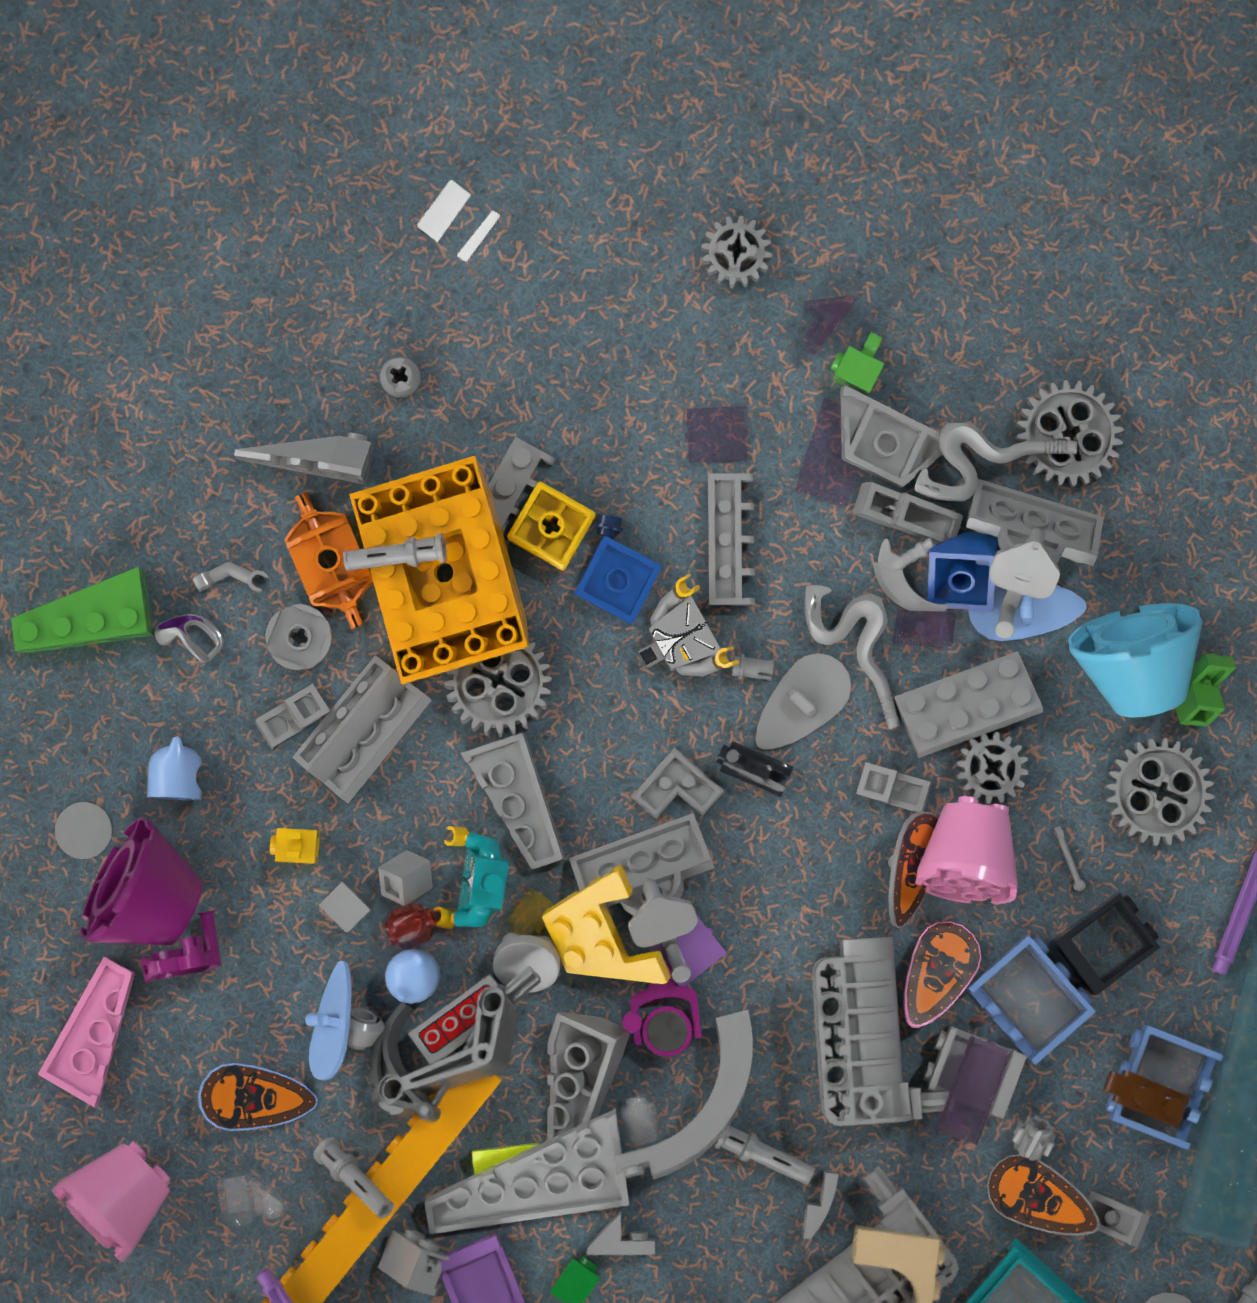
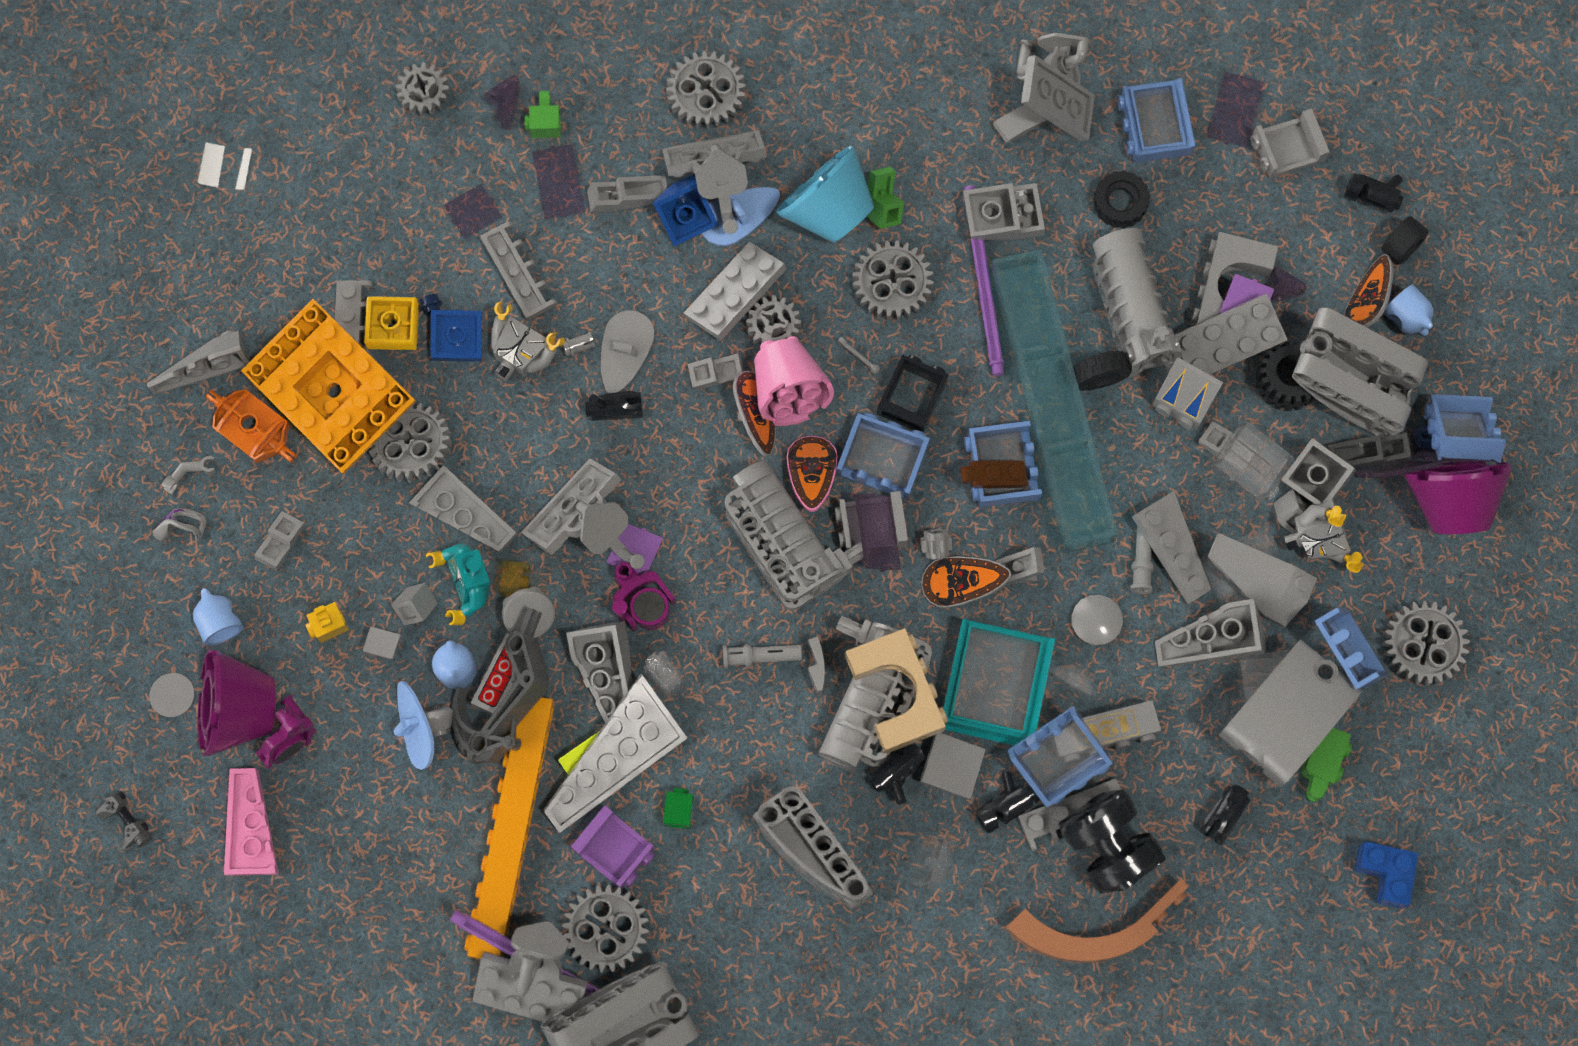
camera: 30 degrees left, 10 degrees down
(94, 615) = (100, 548): bright green wedge -> none
(115, 1197) = (321, 926): bright pink cone -> none
(250, 1196) = (418, 876): clear slope -> none
(252, 1098) = (384, 806): shield -> none
(292, 620) = (267, 495): light grey plate -> none
(345, 1169) = (475, 818): light grey pin -> none
(361, 729) = (331, 523): light grey slope -> none
(397, 365) = (242, 288): light grey piece -> none
(410, 552) = (302, 380): light grey pin -> none
(410, 925) = (434, 632): clear red head -> none
(412, 1261) = (556, 853): light grey hinge -> none
(589, 938) = (559, 569): yellow wing -> none
(609, 1241) = (689, 769): light grey slope -> none
(674, 777) = (565, 442): light grey tile -> none
(706, 1128) = (710, 648): light grey arch -> none
(867, 606) = (629, 266): light grey animal -> none
(884, 439) = (587, 154): light grey wing -> none
(892, 578) = (641, 241): light grey piece -> none
(925, 628) = (679, 258): clear purple slope -> none
(950, 445) = (629, 130): light grey animal -> none

